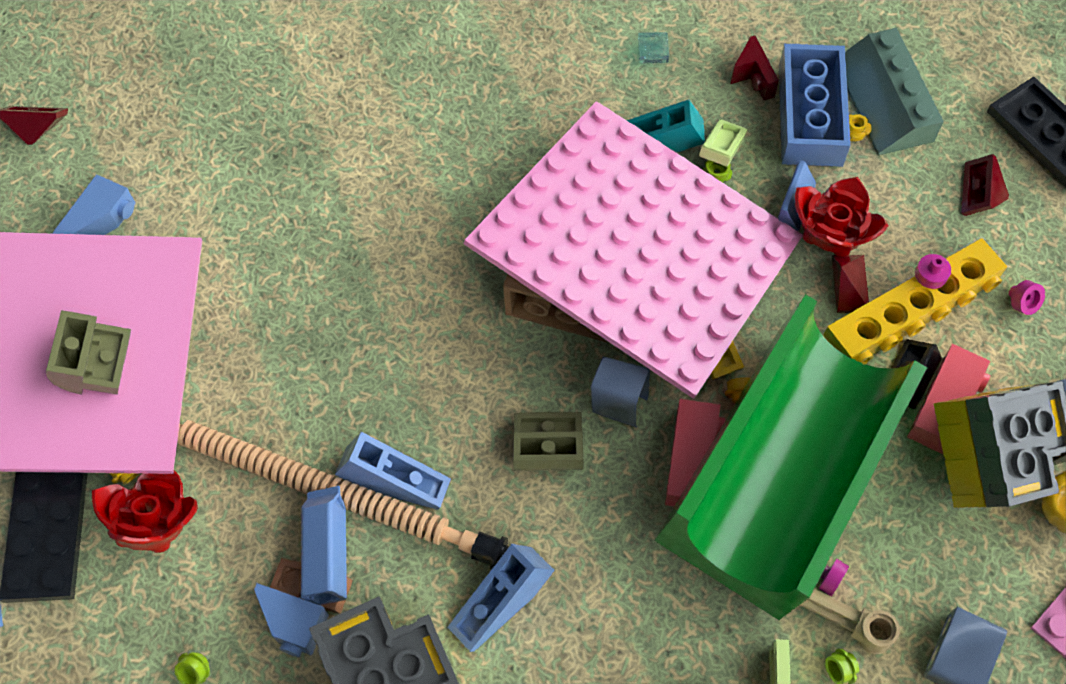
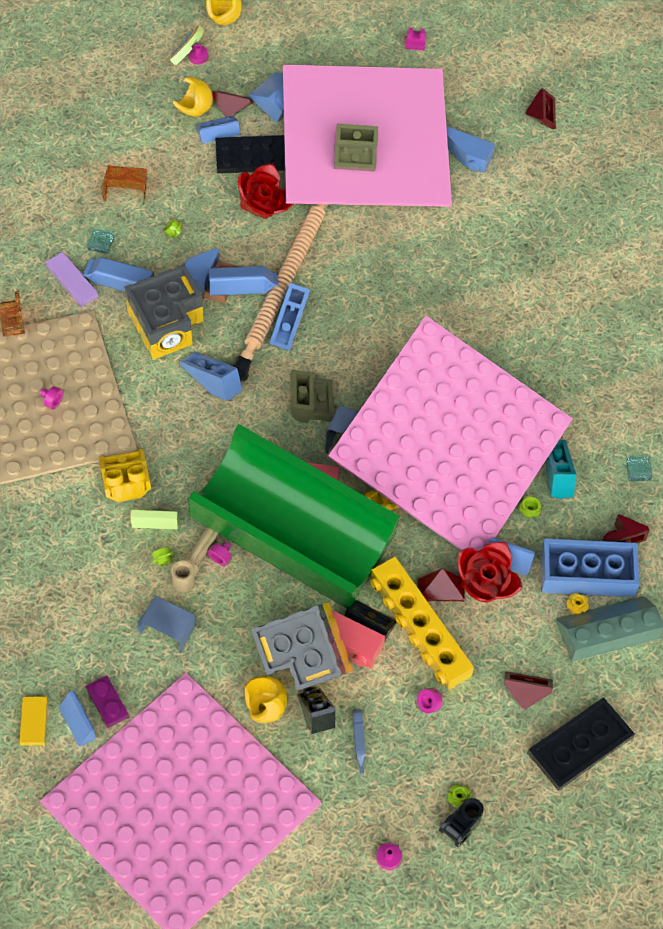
camera: 85 degrees right, 5 degrees down
(723, 142) = (552, 509): yellowish green tile -> none
(933, 271) = (440, 626): dark pink tile -> none

